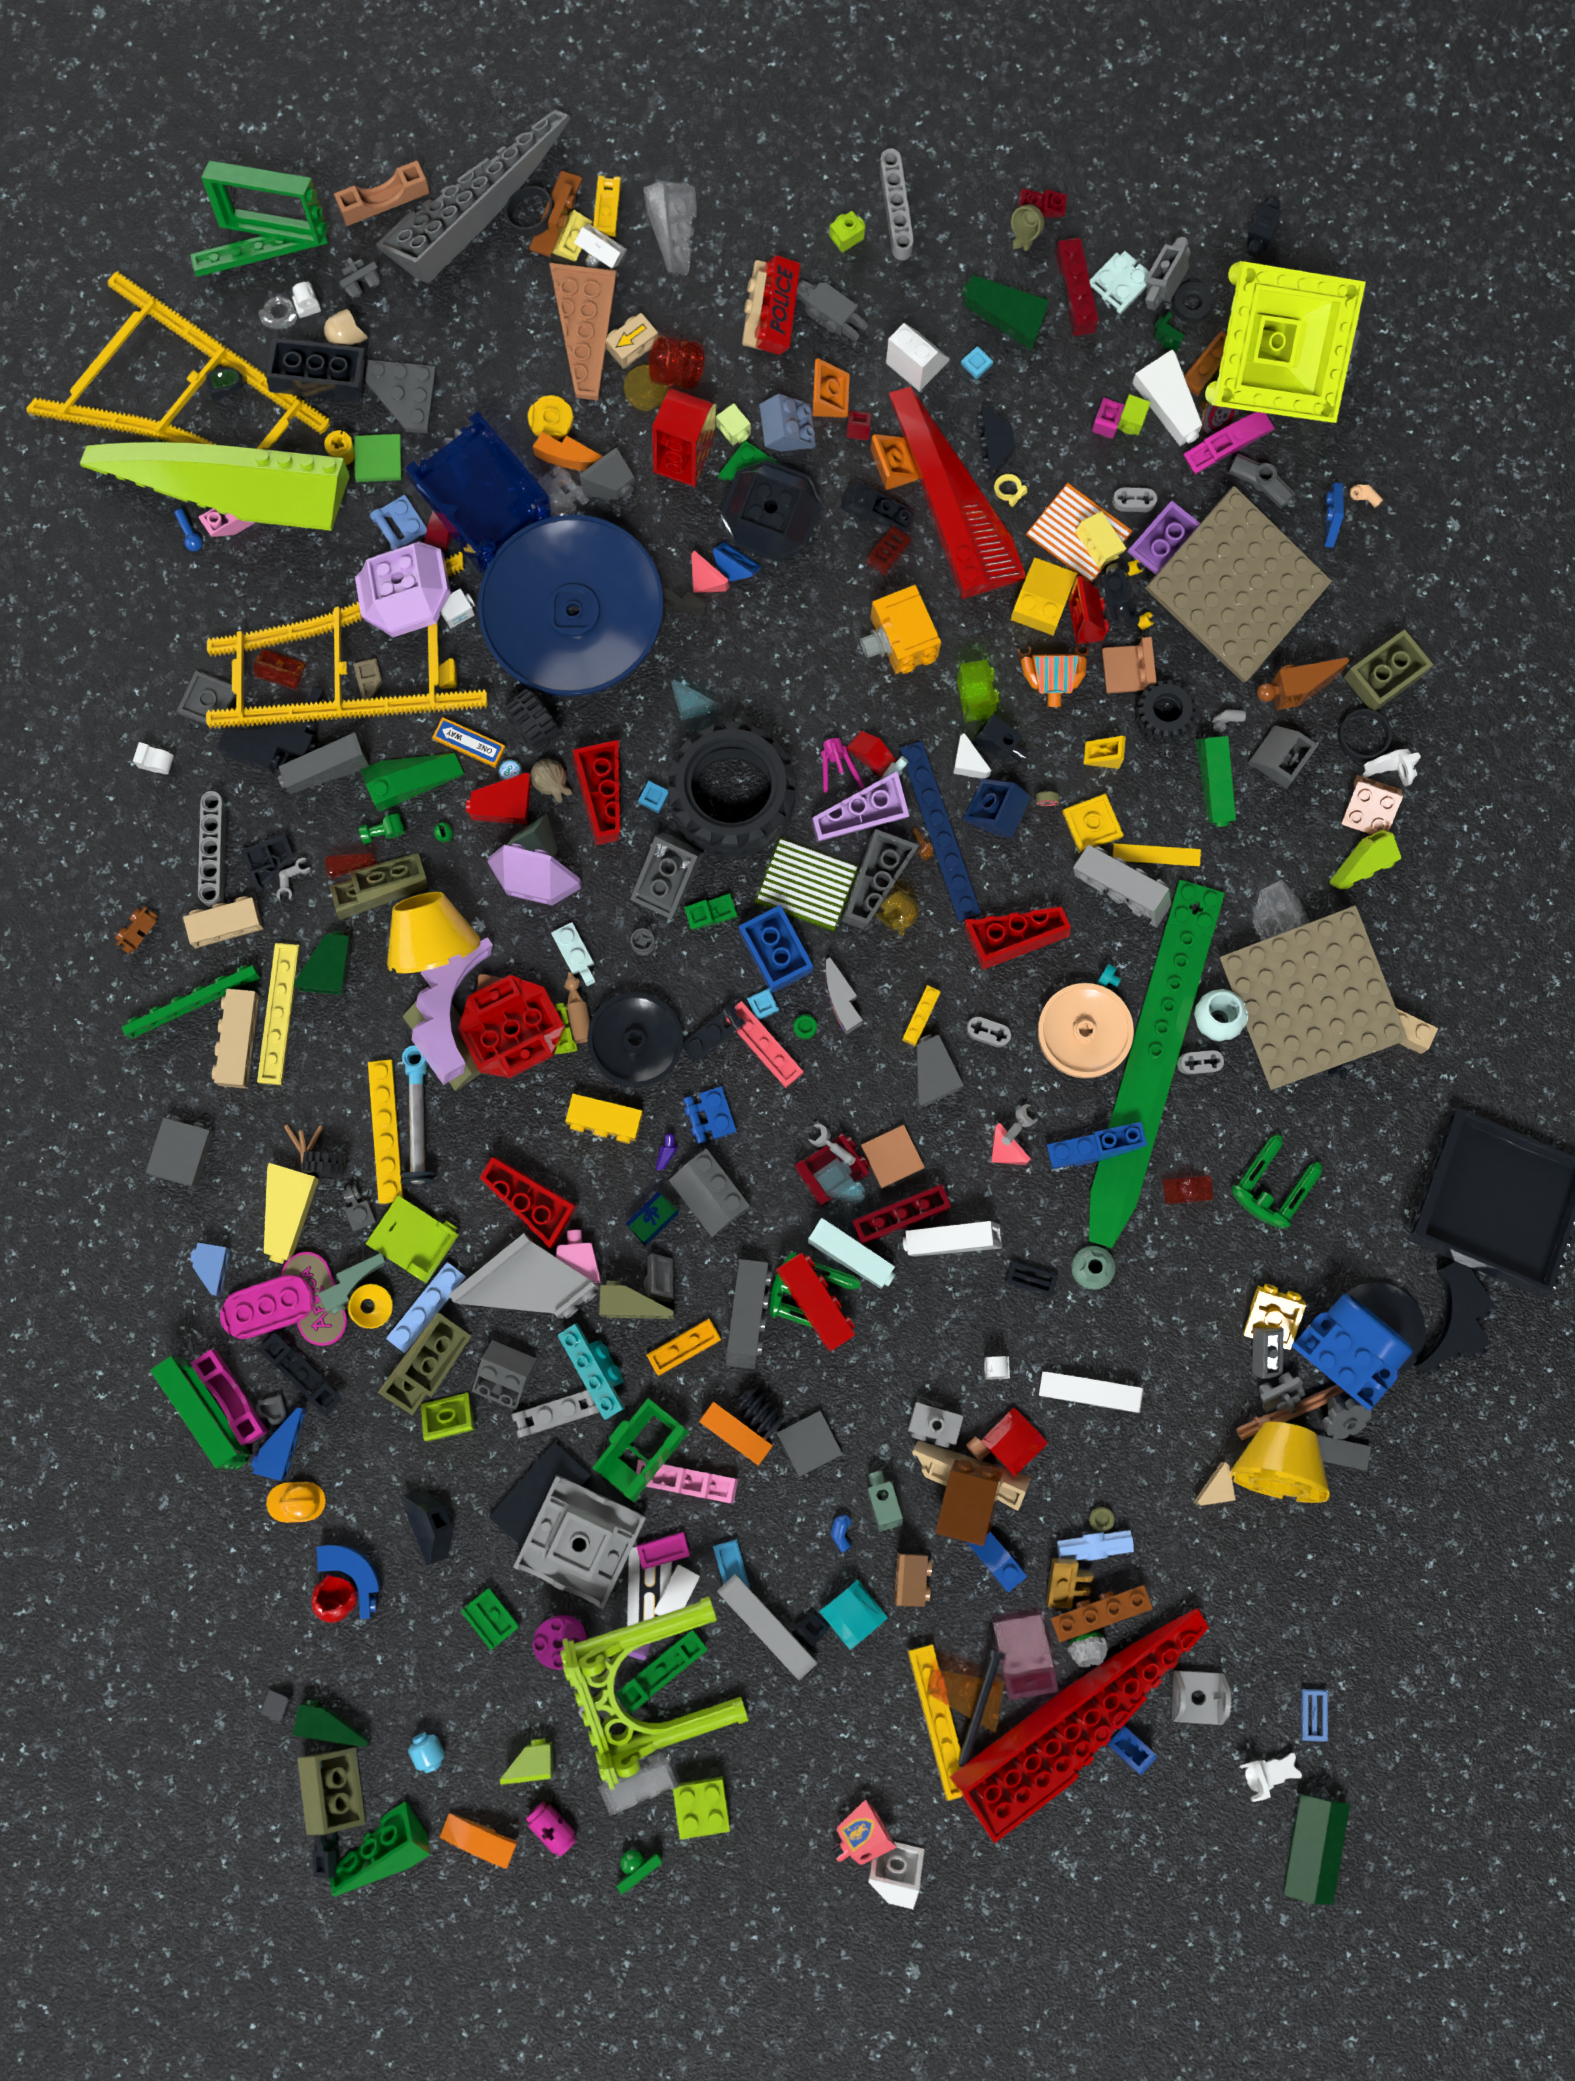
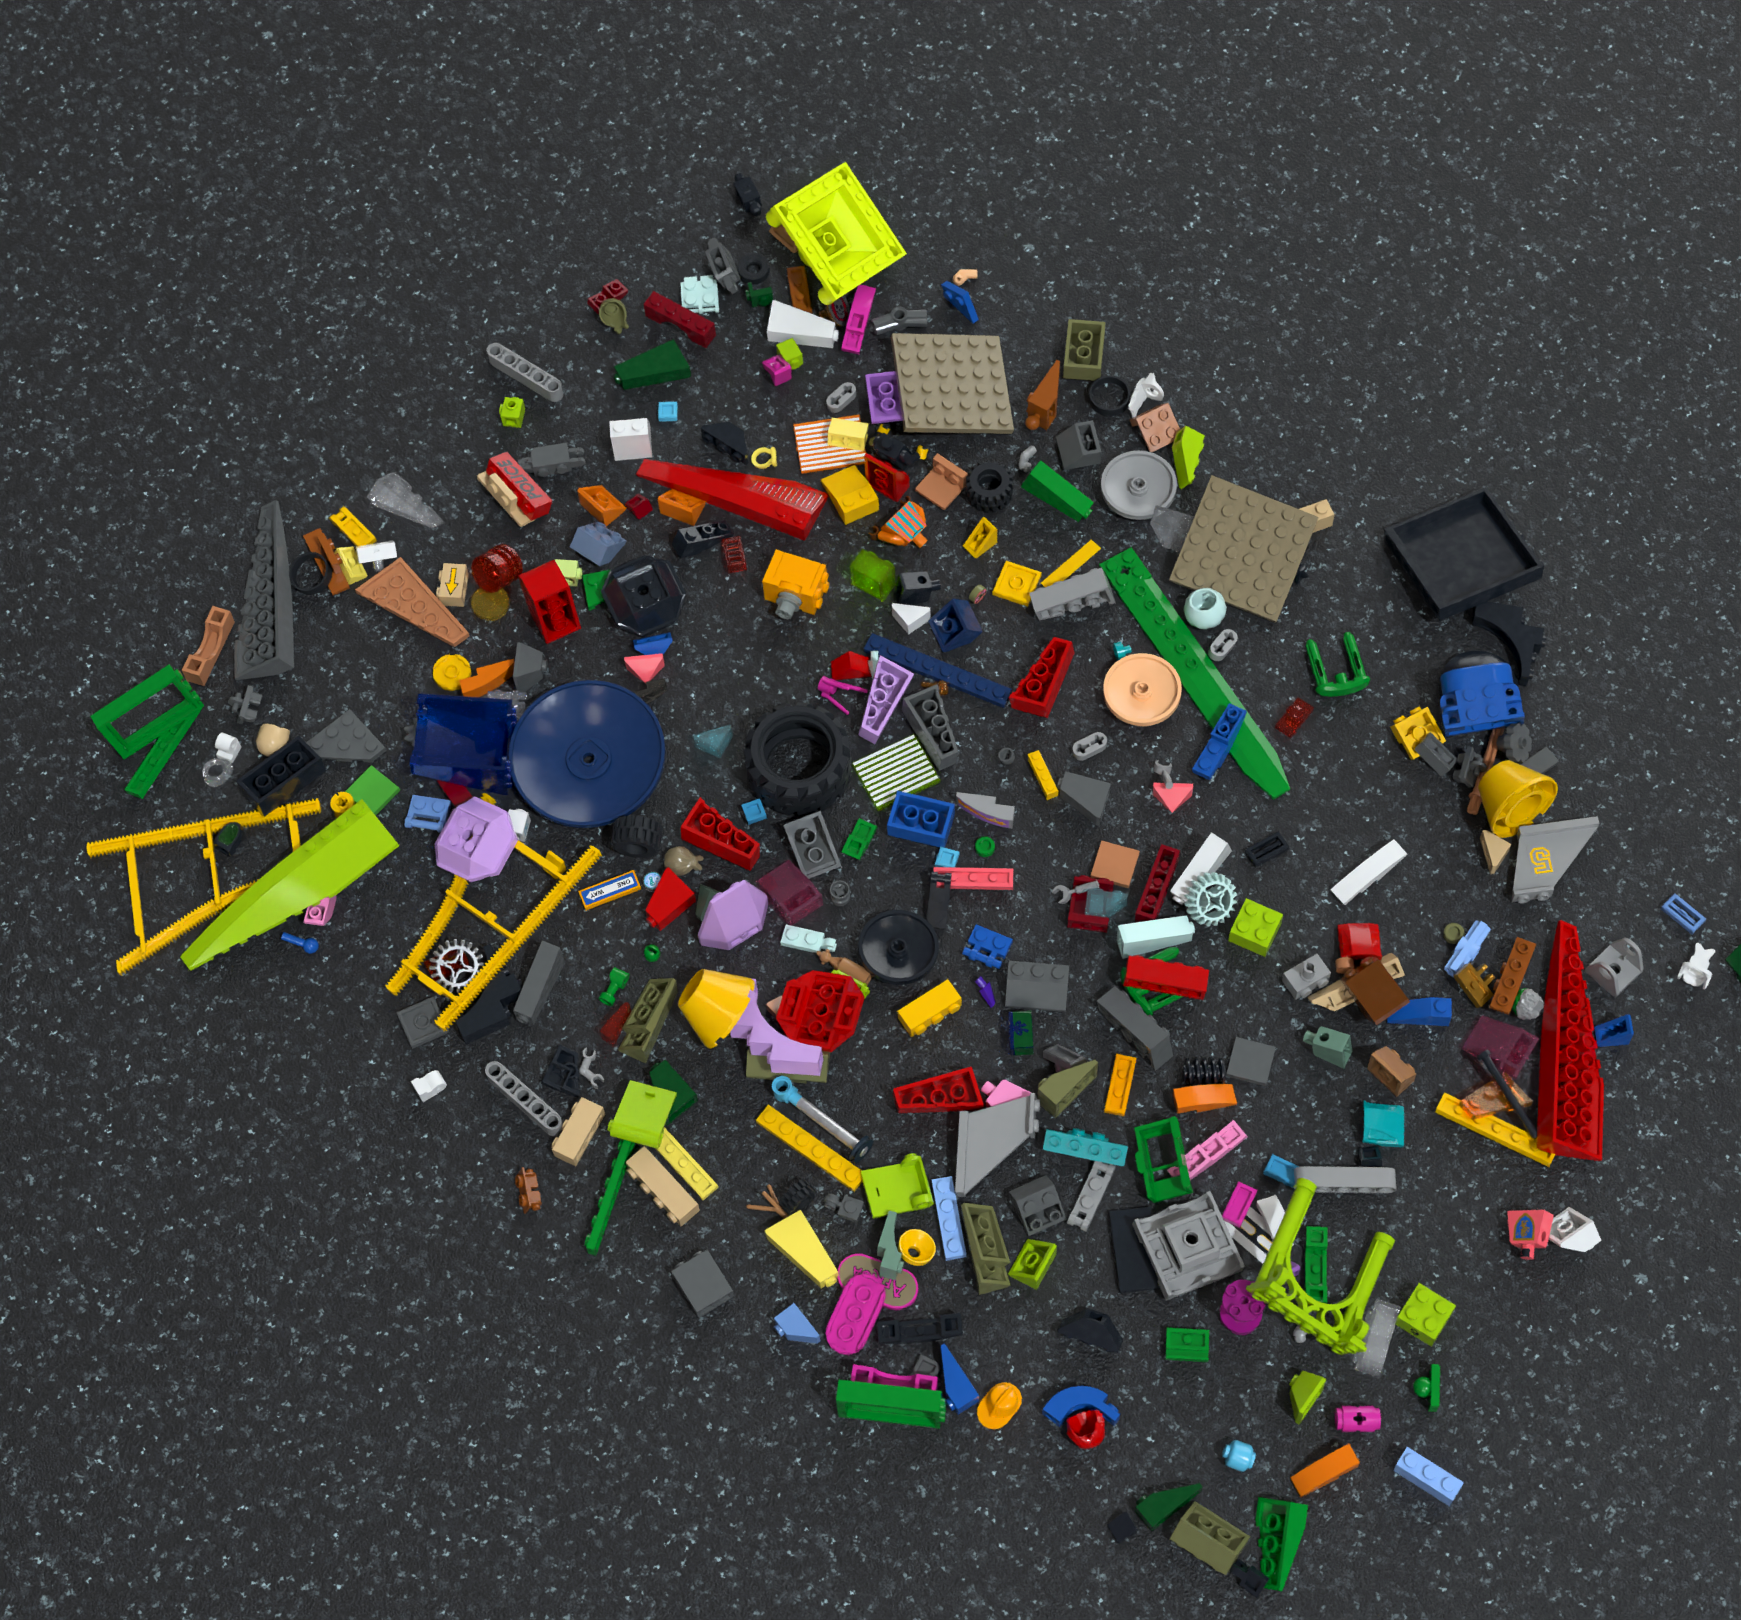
camera: 40 degrees left, 15 degrees down
(270, 673) = (473, 970): none -> light grey gear
(277, 965) = (642, 1114): none -> lime door
(368, 677) = (507, 914): dark tan tile -> none
(405, 778) = (594, 947): green wedge -> none
(551, 1937) = (1428, 1476): none -> light blue brick
(604, 898) = (791, 892): none -> clear pink slope
(839, 1530) = (1322, 1089): blue arm -> none
(900, 912) = (966, 731): clear yellow helmet -> none
(908, 964) = (1003, 755): none -> dark grey hinge
(929, 1274) = (1222, 891): none -> light aqua gear
(941, 1337) = (1255, 927): none -> lime brick
(996, 1367) = (1305, 912): white leg -> none
(1082, 1274) = (1289, 816): sand green piece -> none
(1256, 1540) = (1546, 854): none -> light grey piece
(1293, 843) = (1137, 483): none -> light grey dish

